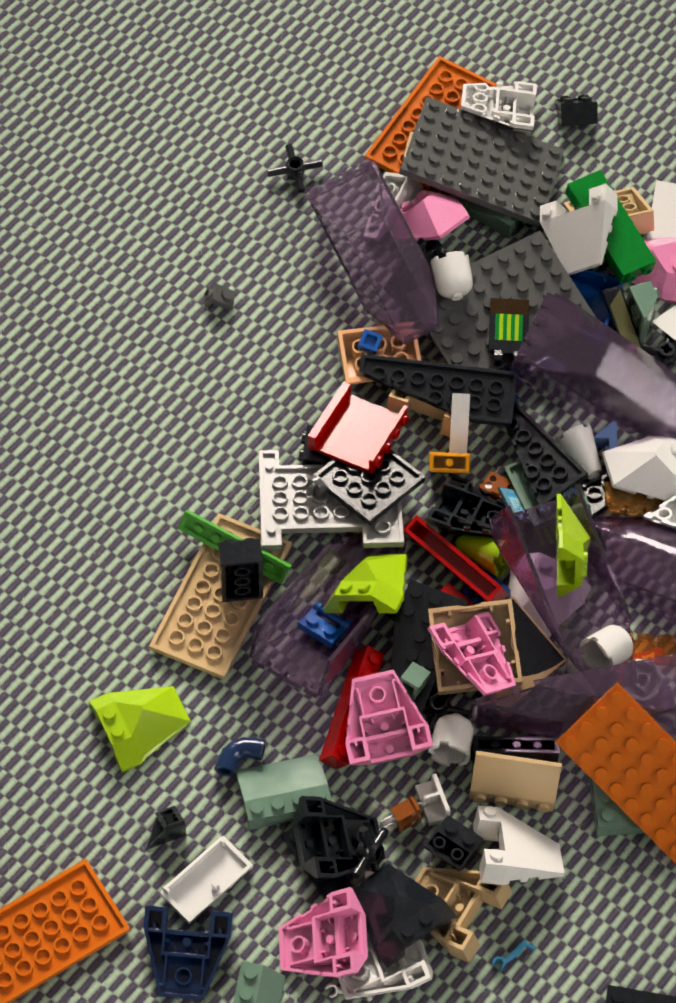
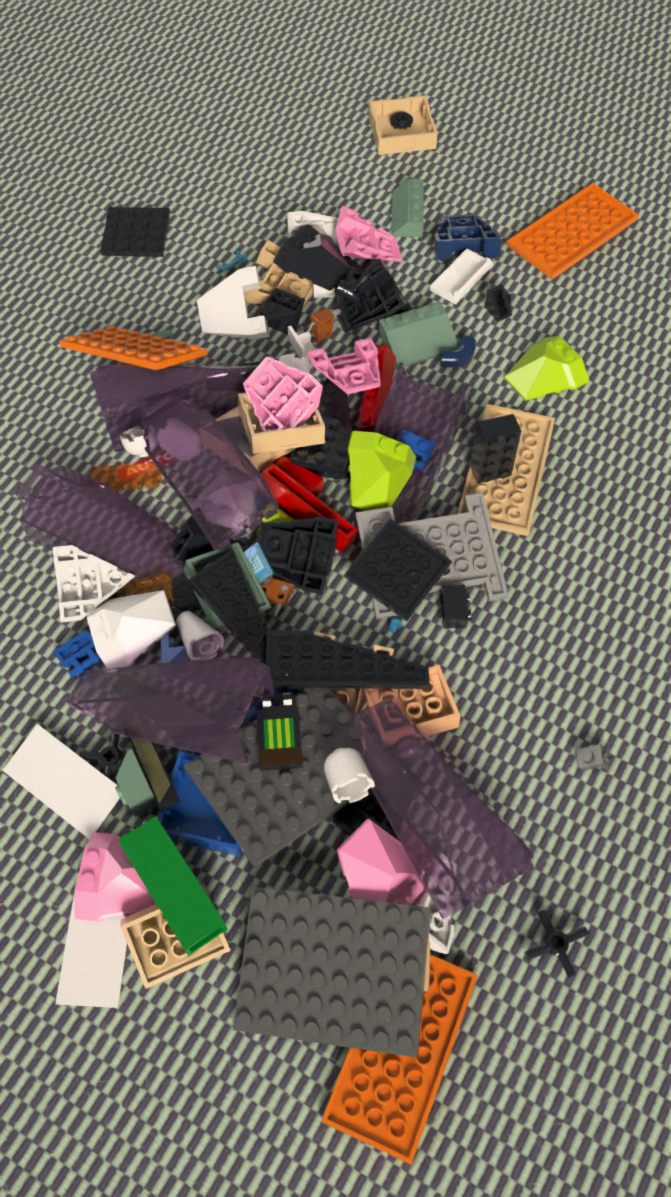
camera: 175 degrees right, 0 degrees up
(212, 534) = (513, 499): bright green plate -> none
(315, 486) = (447, 550): dark grey tile -> none
(356, 430) = (416, 614): panel -> none
(370, 341) = (423, 701): blue plate -> none
(415, 679) = (330, 395): sand green brick -> none
(449, 463) = (323, 604): light orange brick -> none
(459, 423) = (318, 627): white sticker -> none
(502, 104) = (317, 1072): white wedge -> none
(514, 781) = (237, 347): tan slope -> none
(571, 549) = (200, 483): lime wedge -> none
(576, 110) = (220, 1097): black slope -> none
(582, 233) = (207, 856): white wedge -> none
(606, 647) = (164, 418): white cylinder -> none

